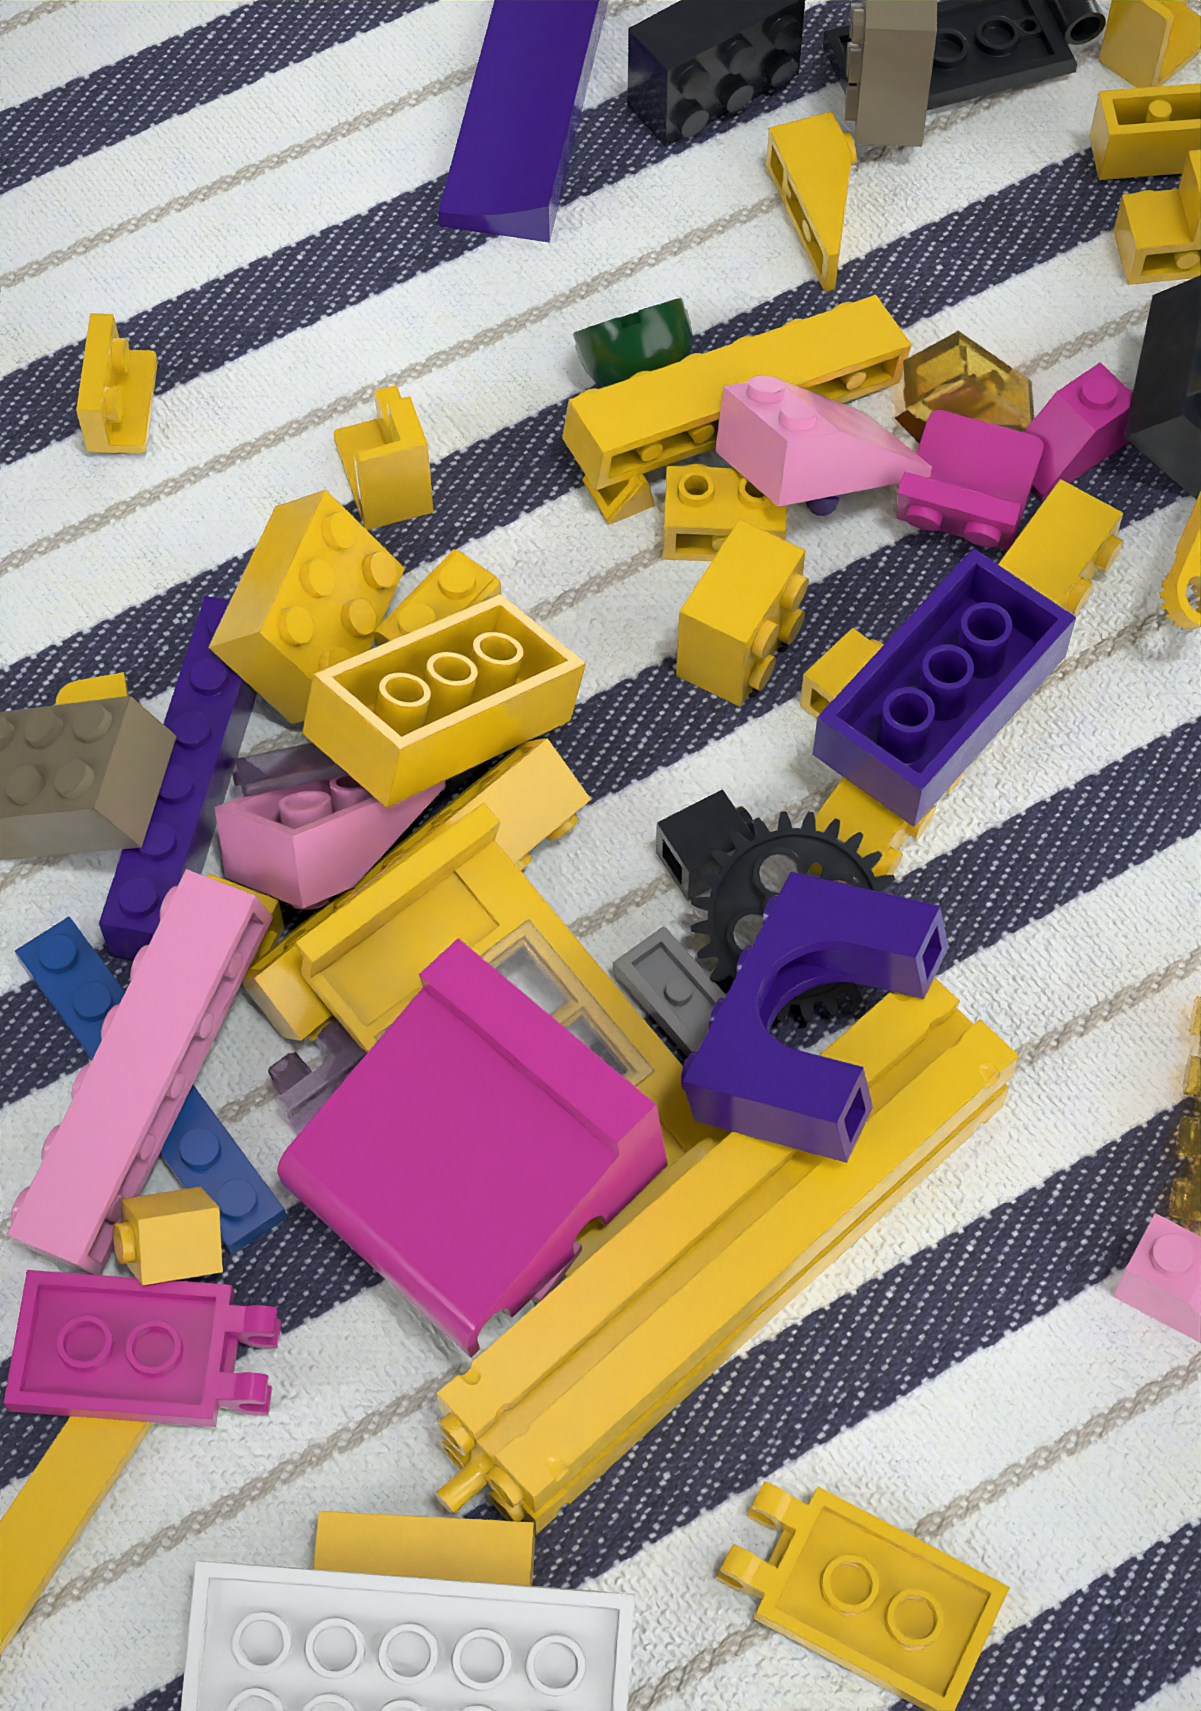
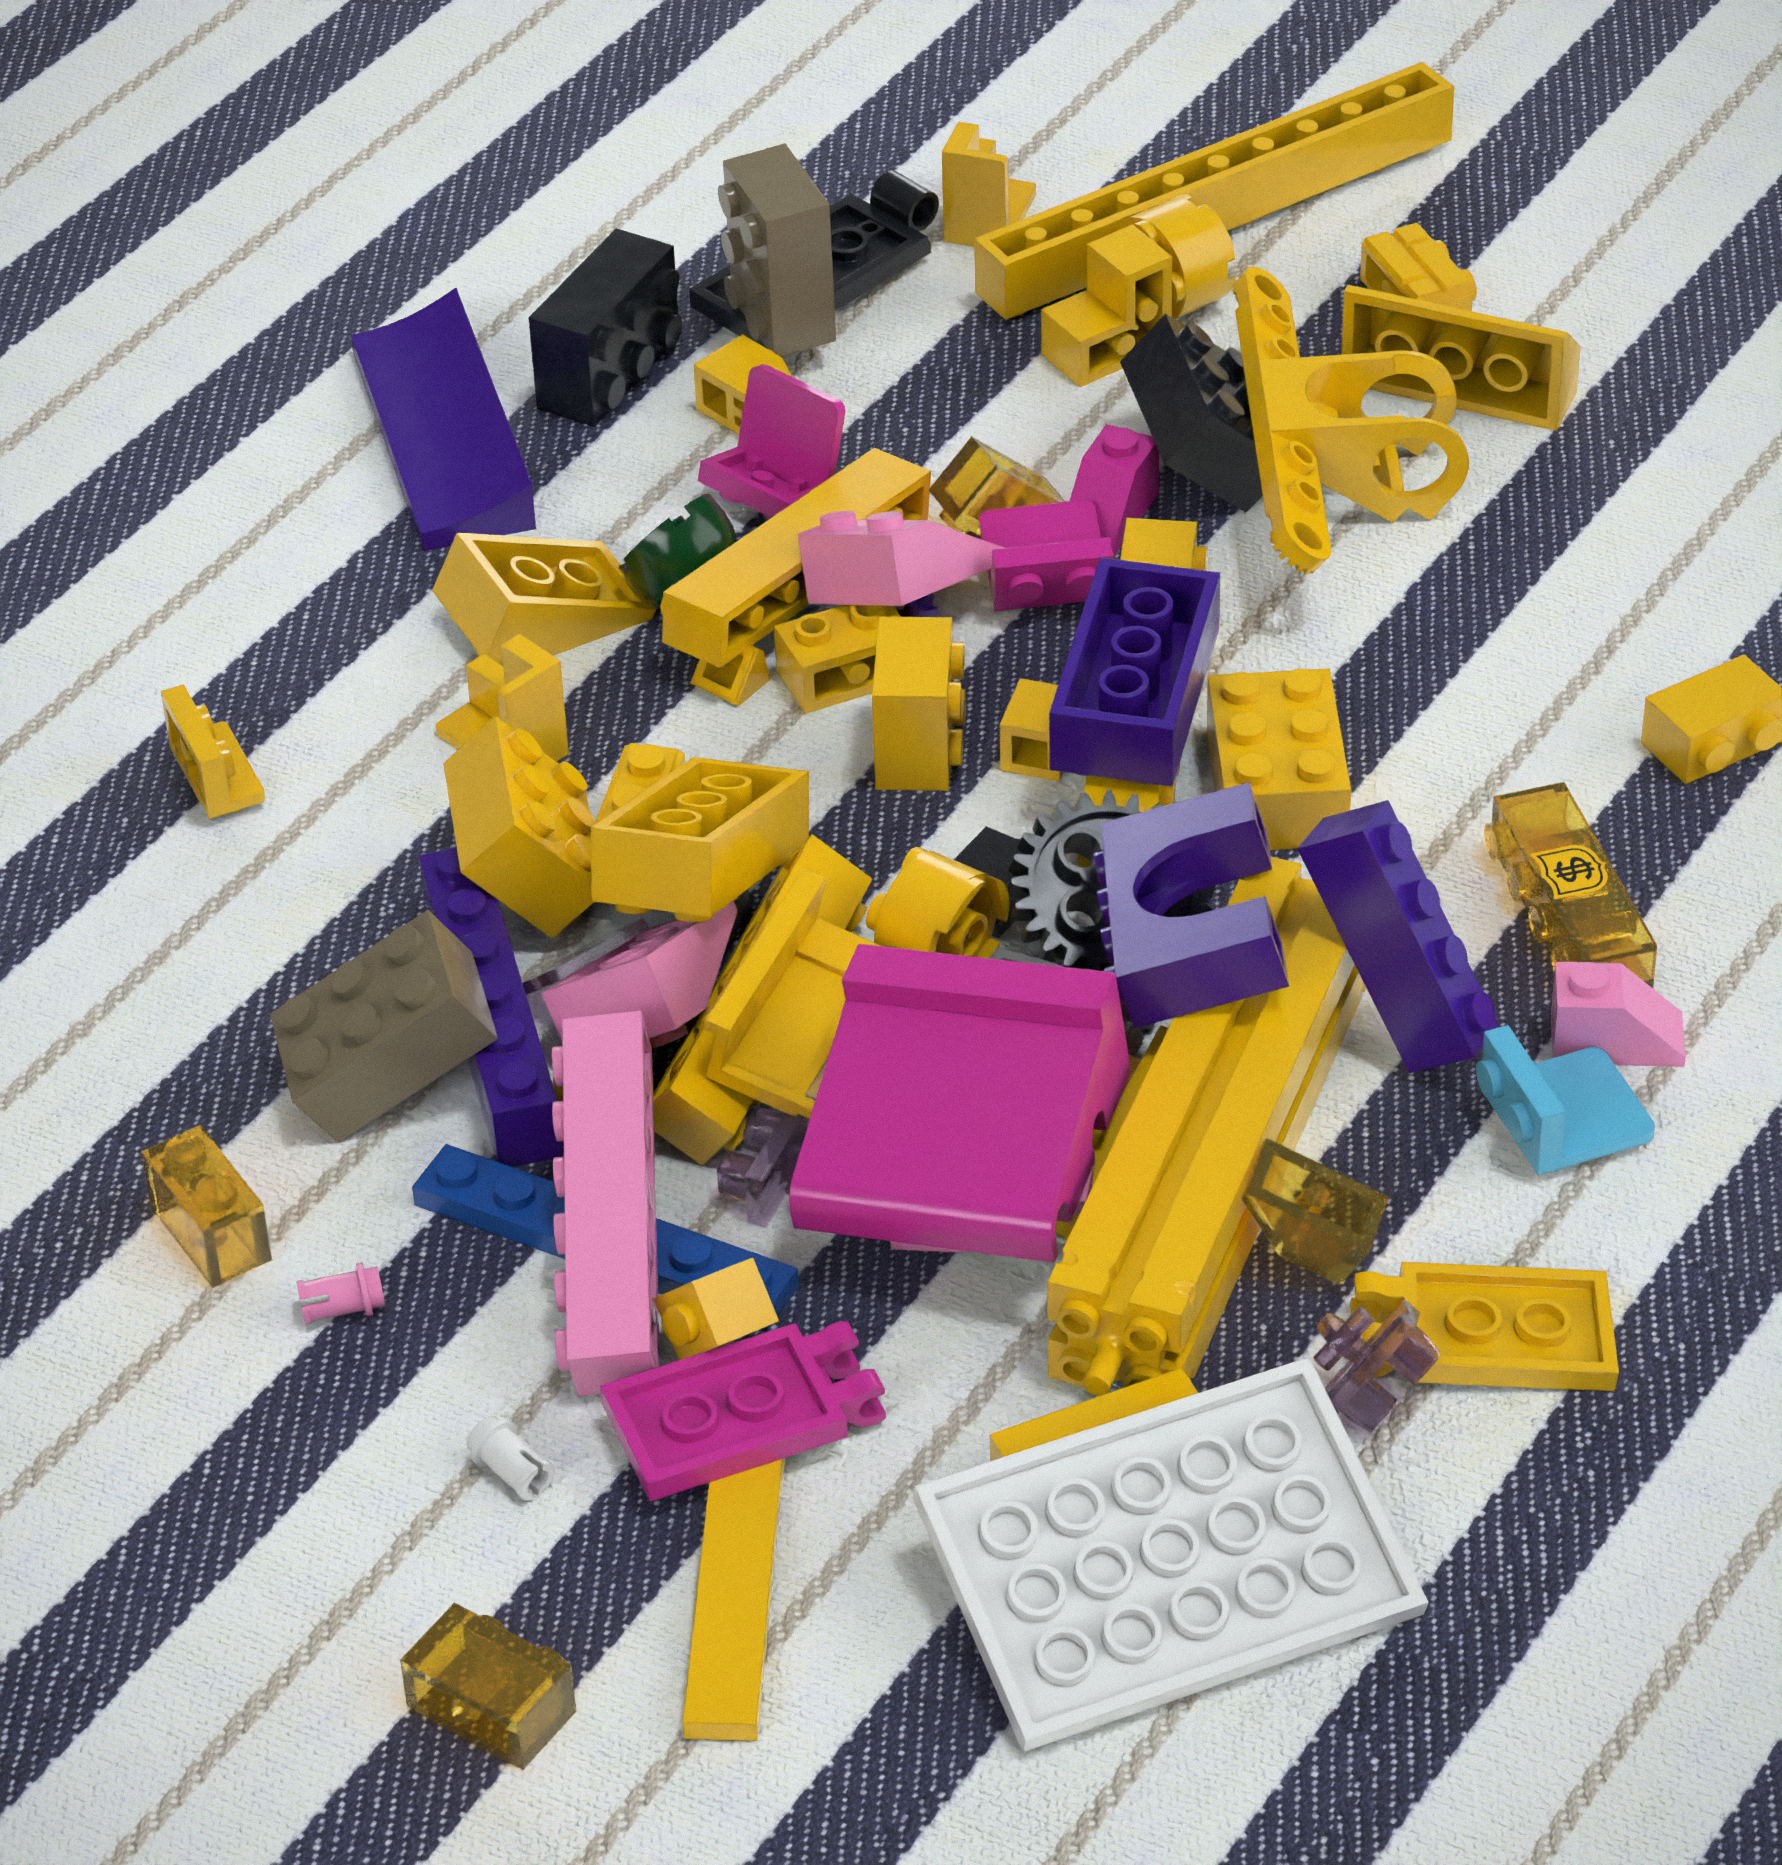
camera: 25 degrees left, 20 degrees down
(493, 327) = (538, 588): none -> yellow slope
(615, 881) = (939, 907): none -> yellow brick
(707, 1595) = (1394, 1342): none -> hips
(755, 1399) = (1312, 1211): none -> clear yellow slope
(792, 265) = (783, 446): none -> dark pink bracket
(998, 1135) = (1398, 936): none -> dark purple brick
(1045, 824) = (1285, 741): none -> yellow brick
(1084, 1366) = (1561, 1106): none -> medium azure bracket

